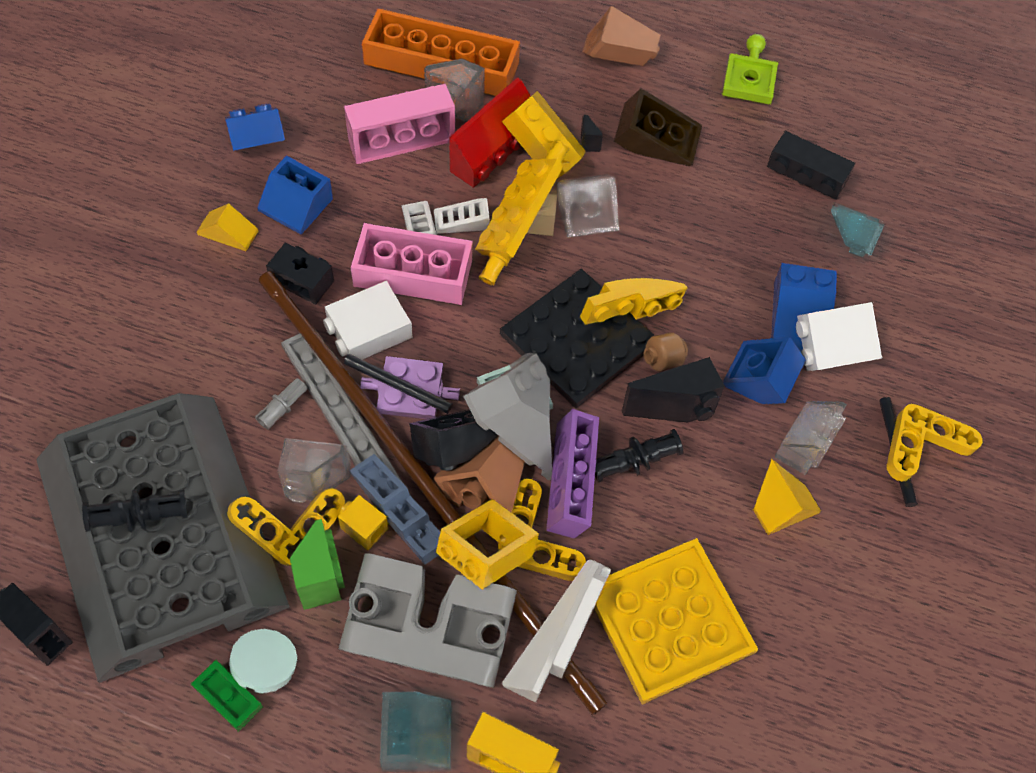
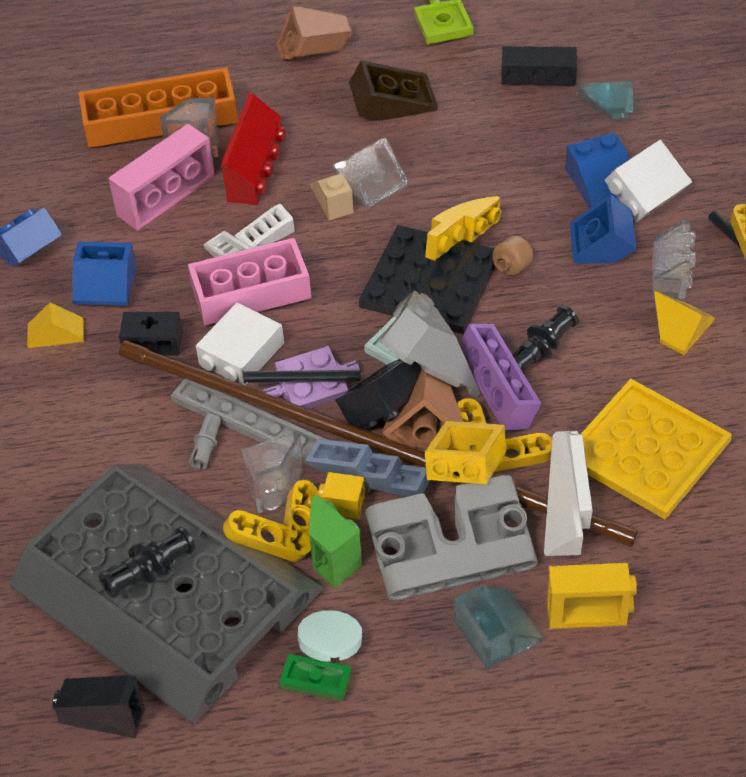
camera: 20 degrees left, 10 degrees down
(518, 210) = (318, 198): yellow plate -> none
(537, 127) = (299, 135): yellow slope -> none
(590, 135) = (335, 119): black slope -> none
(676, 394) = (544, 279): black slope -> none

